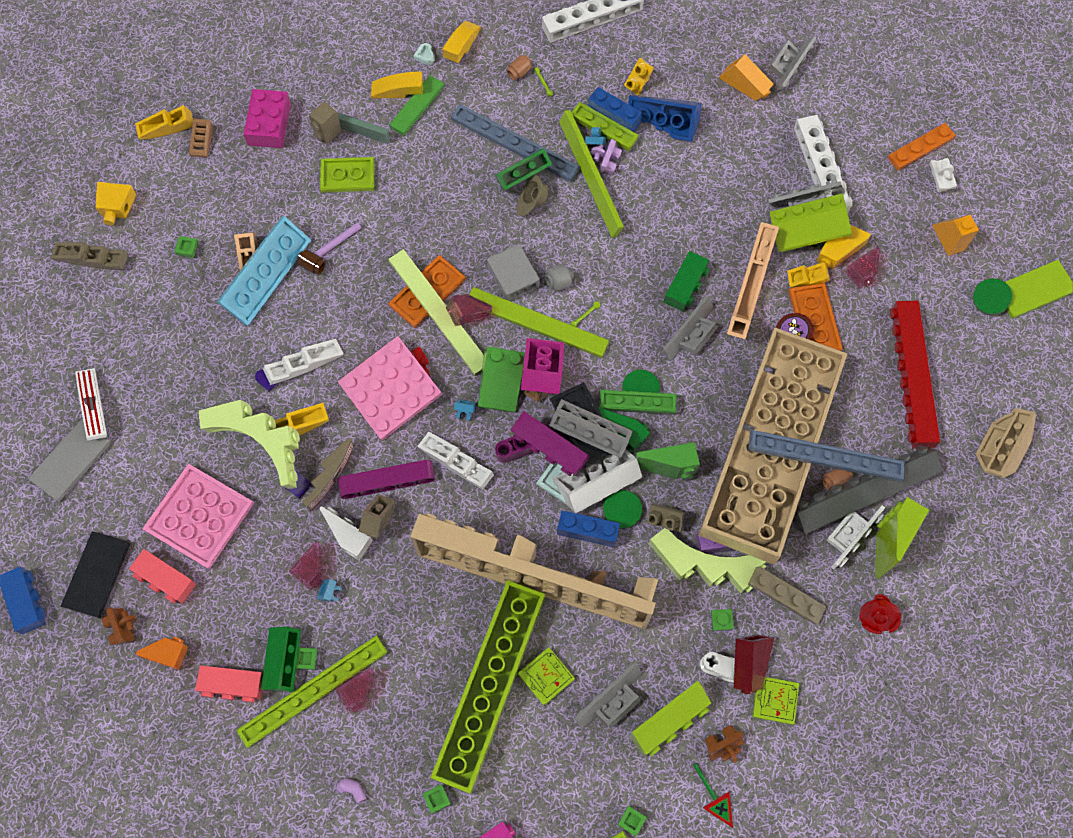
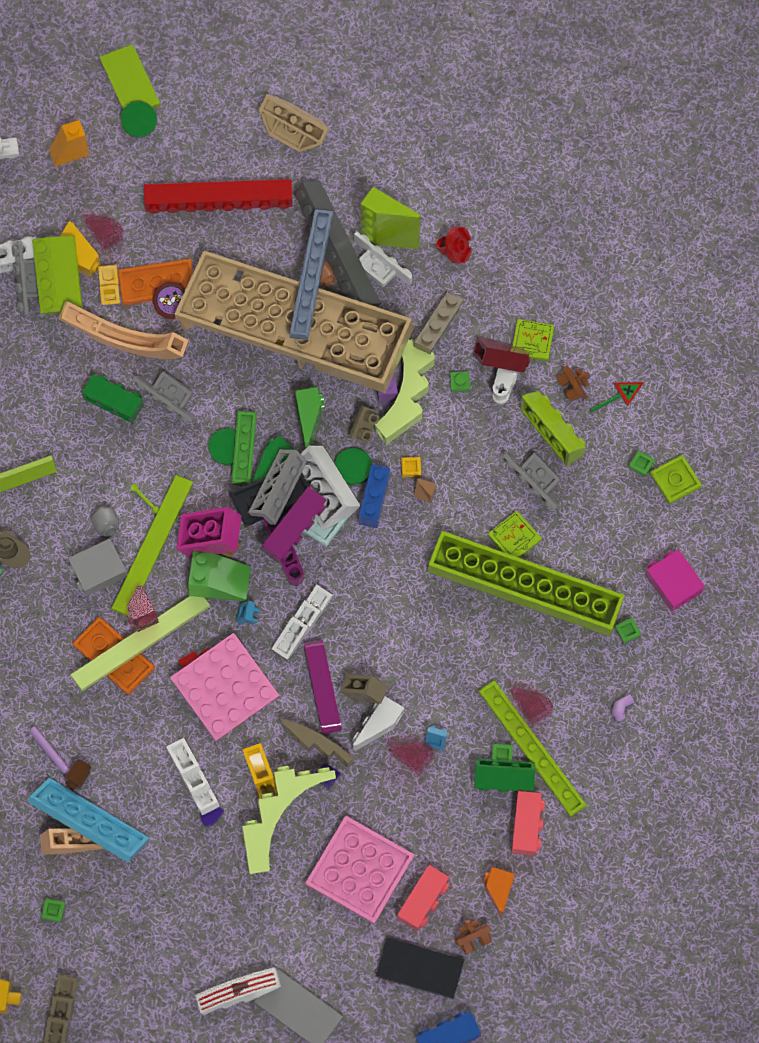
camera: 90 degrees left, 0 degrees up
(479, 555) = (415, 549): tan piece -> none
(623, 568) = (411, 467): none -> yellow tile

